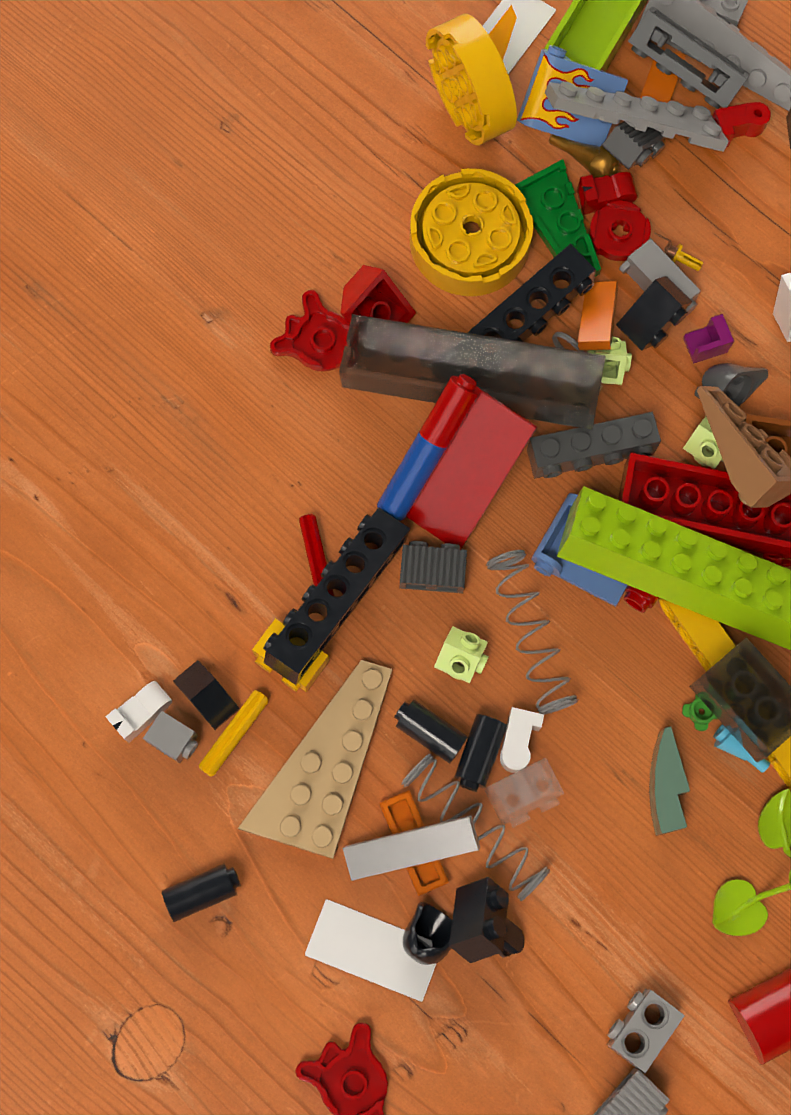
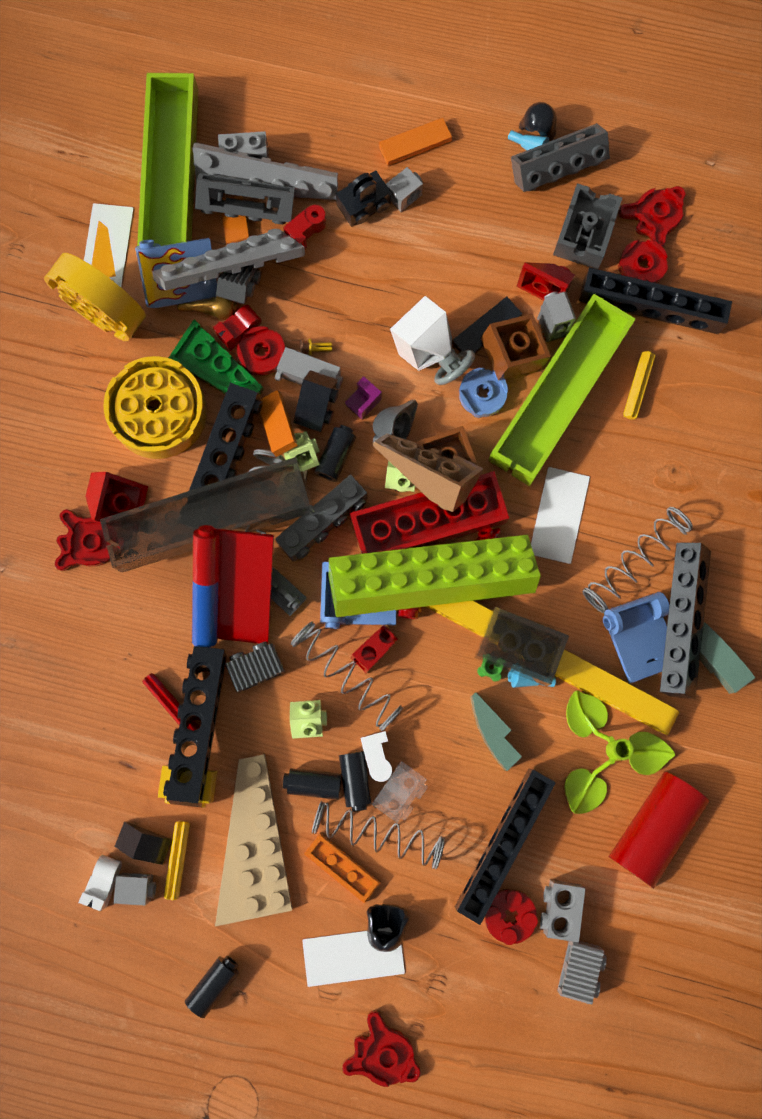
camera: 25 degrees left, 5 degrees up
(411, 848) = (342, 875): light grey tile -> none
(482, 924) = (416, 902): black brick -> none
(508, 507) = (285, 593): none -> dark grey hinge
(577, 619) = (374, 648): none -> red leg
(594, 1016) = (525, 922): none -> red plate
(616, 916) = (504, 846): none -> black brick
(645, 383) = (335, 453): none -> black brick

